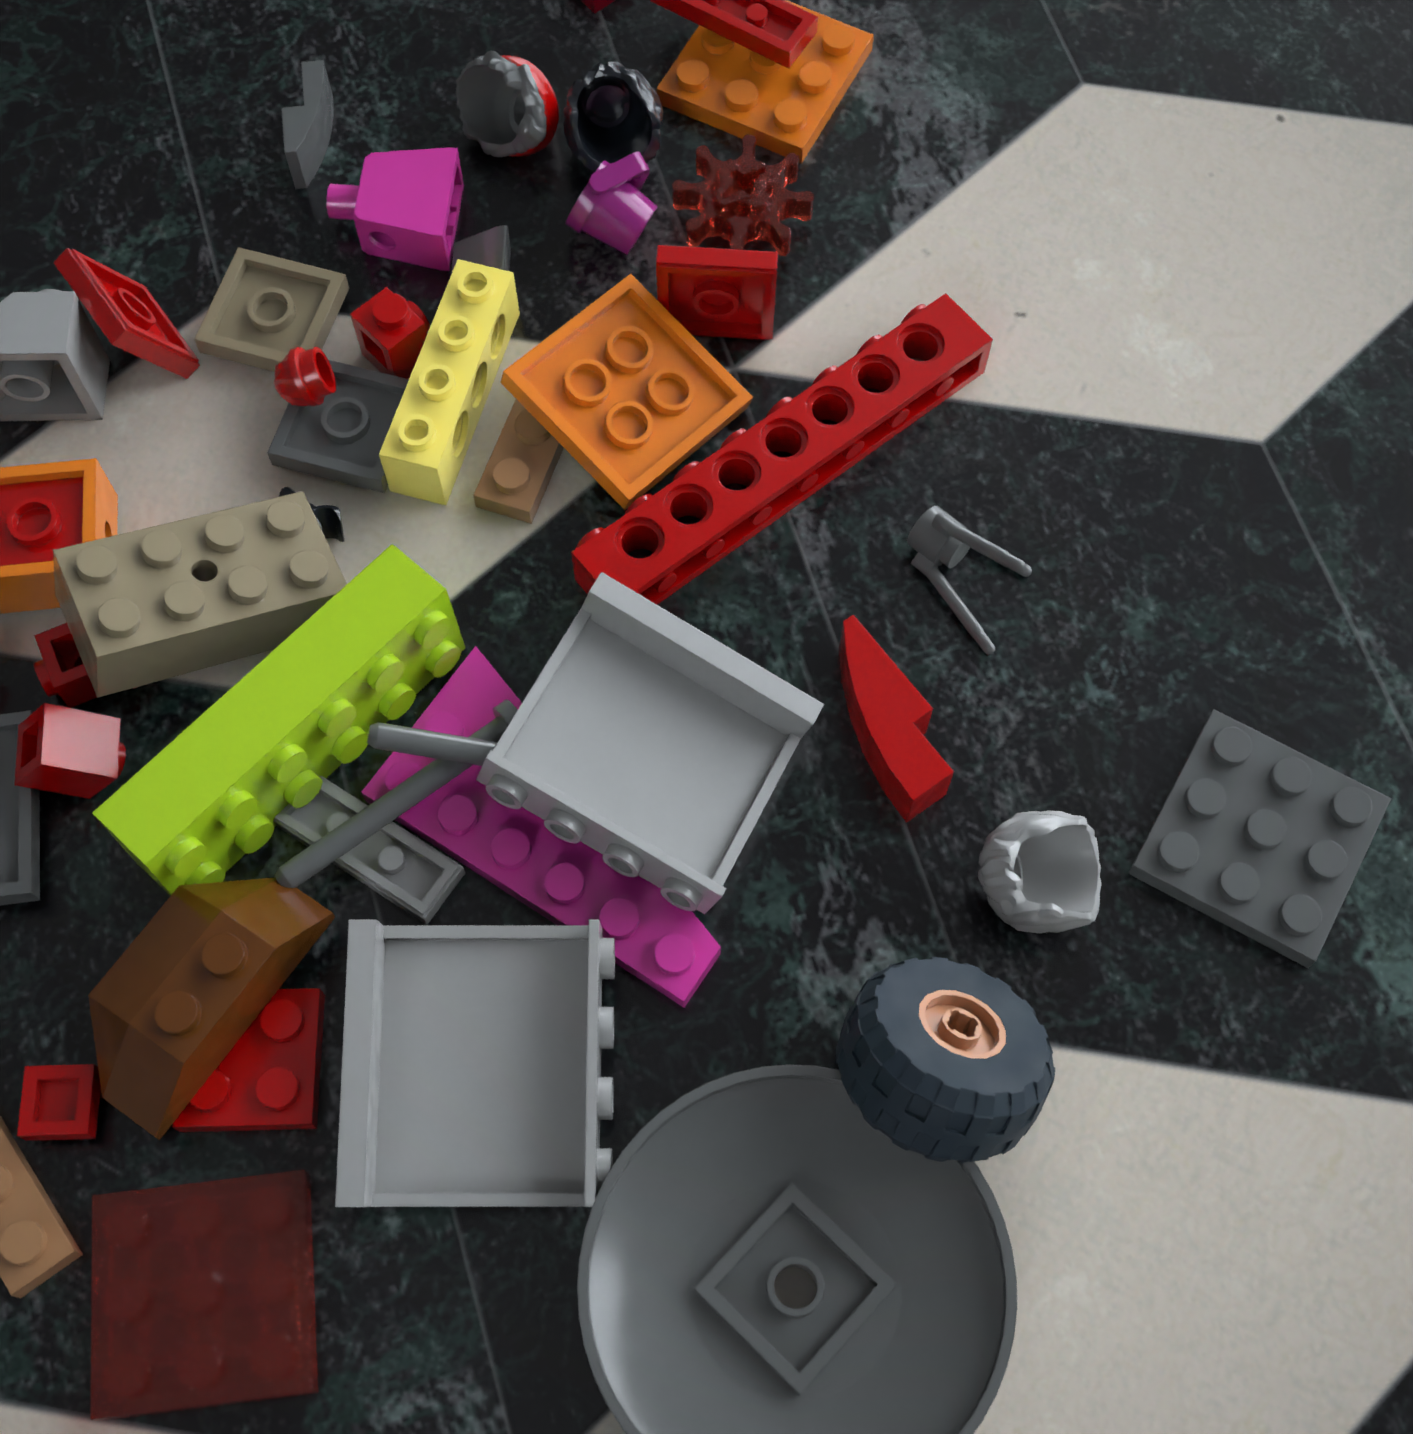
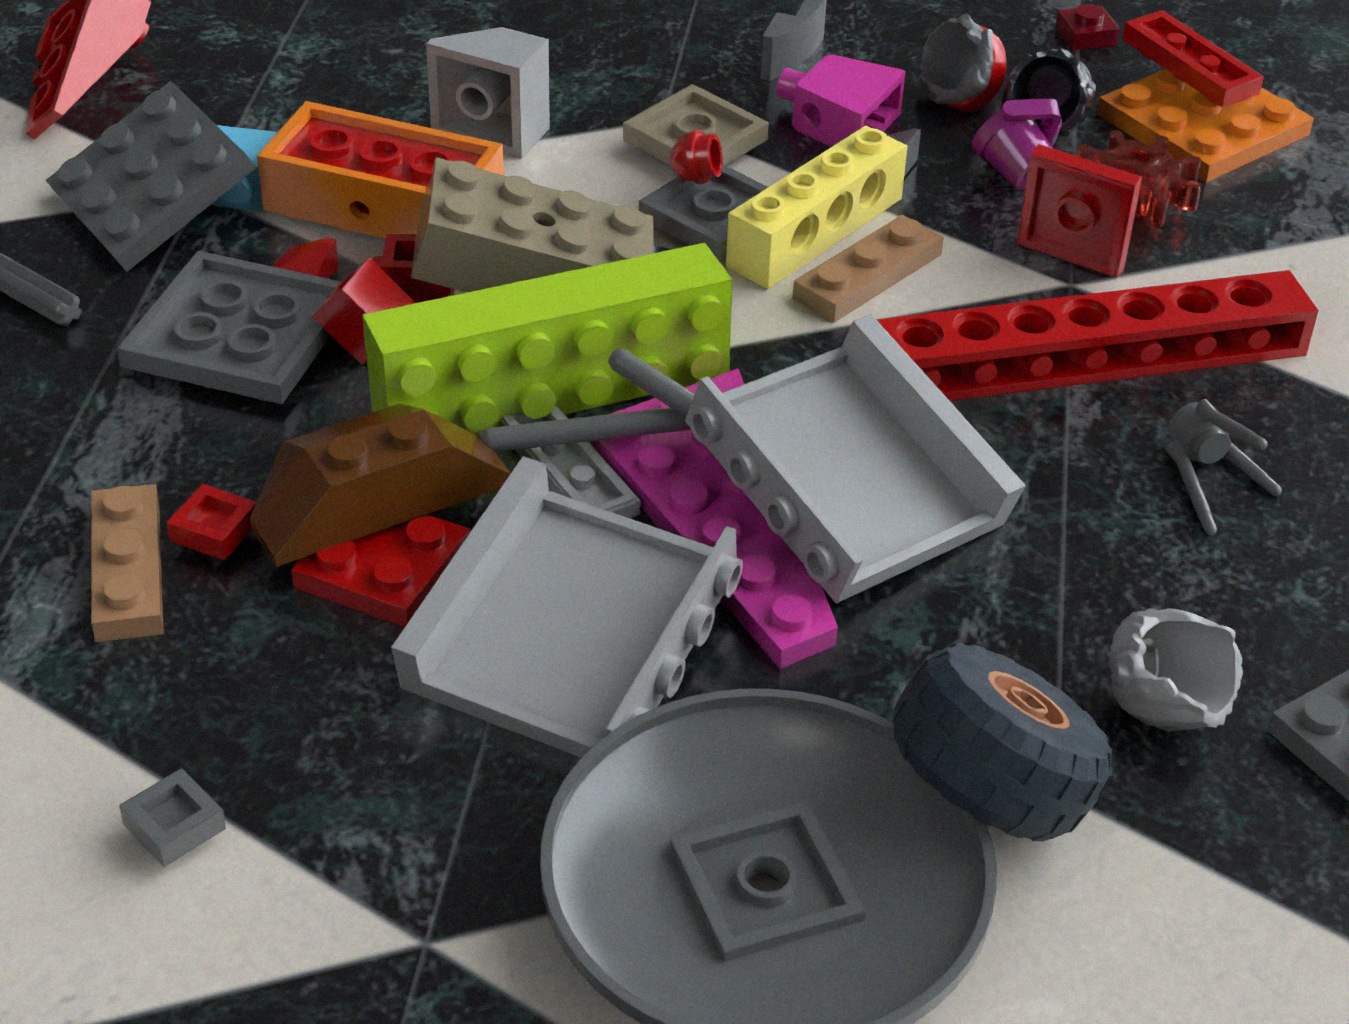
camera: 25 degrees right, 25 degrees down
(127, 313) = (581, 86): red tile -> none
(202, 1295) = (242, 692): clear red plate -> none
(390, 332) = (781, 152): red brick -> none
(626, 390) = (962, 245): orange plate -> none
(890, 723) = (1086, 538): red slope -> none

